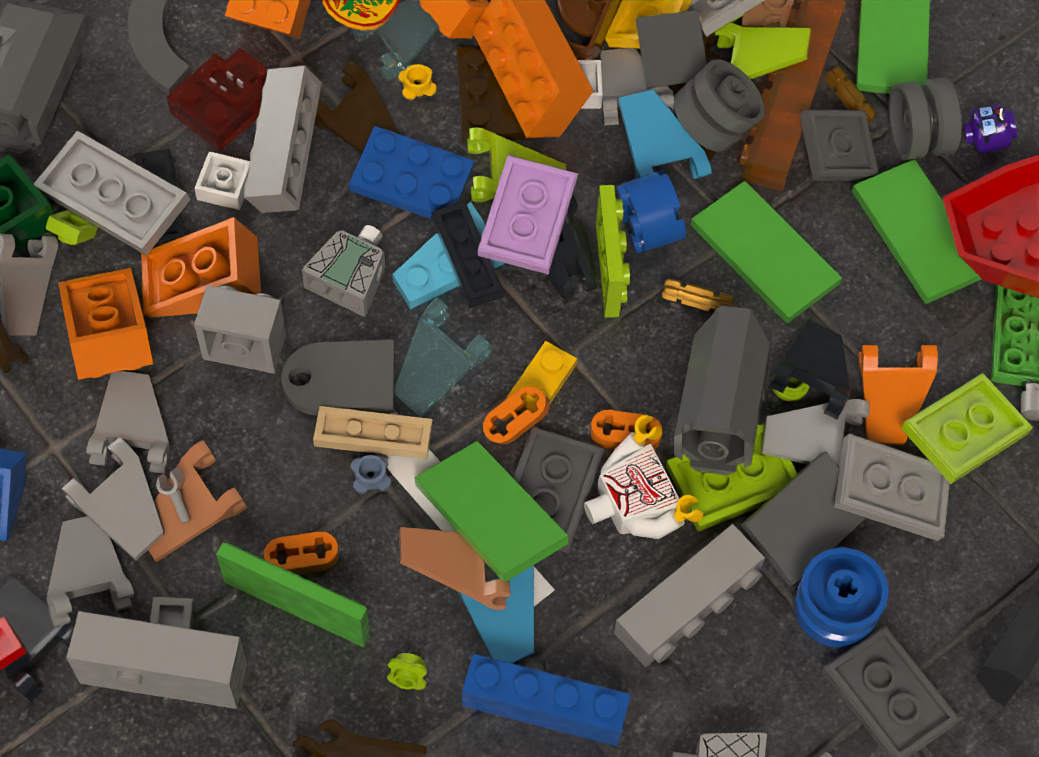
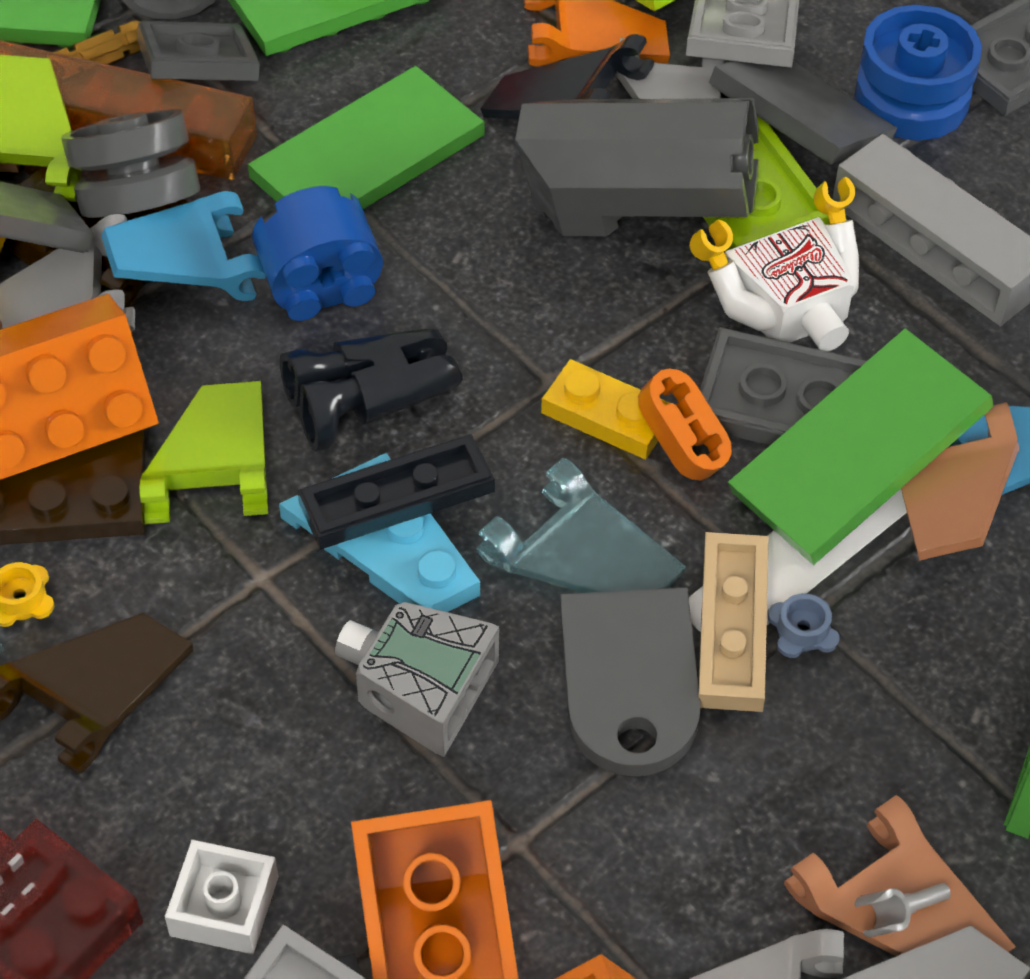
camera: 90 degrees left, 10 degrees down
(240, 328) = (567, 810): light grey brick -> none
(282, 139) = (150, 777): light grey brick -> none
(301, 552) = (975, 712): orange beam -> none
(410, 173) = (220, 594): blue plate -> none
(527, 214) = (334, 393): lavender tile -> none
(611, 246) = (394, 294): lime plate -> none
(622, 425) = (694, 306): orange beam -> none
(695, 295) = (449, 223): pearl gold axle -> none

